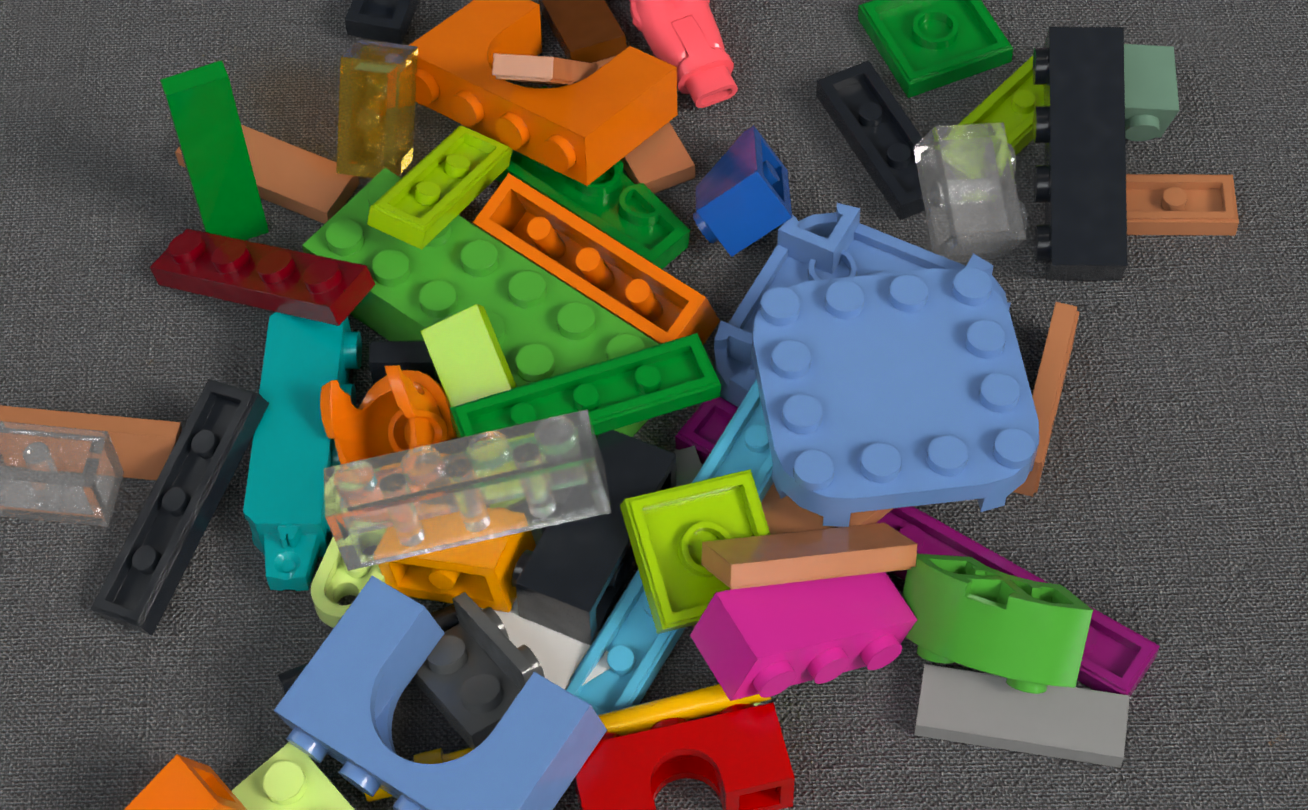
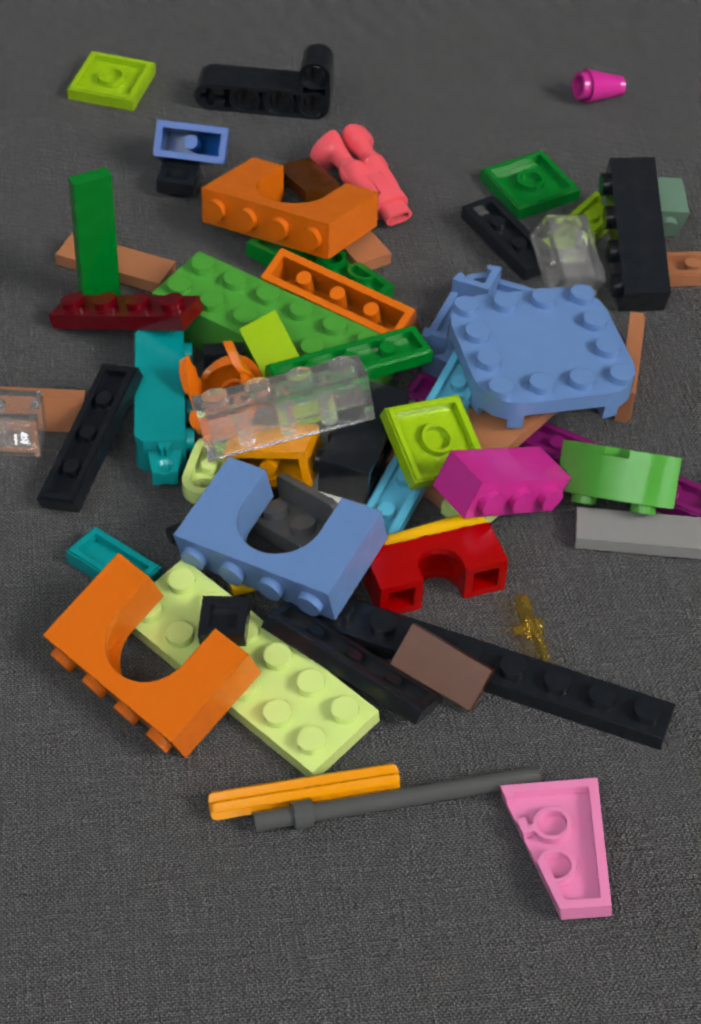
camera: 10 degrees left, 10 degrees down
(188, 723) = (98, 548): none -> teal tile
(376, 108) = (188, 219): clear yellow brick -> none
(439, 187) = (237, 256): lime tile -> none
(541, 69) = (294, 187): nougat tile -> none
(743, 194) = (425, 265): blue slope -> none
(808, 555) = (501, 438): nougat tile -> none

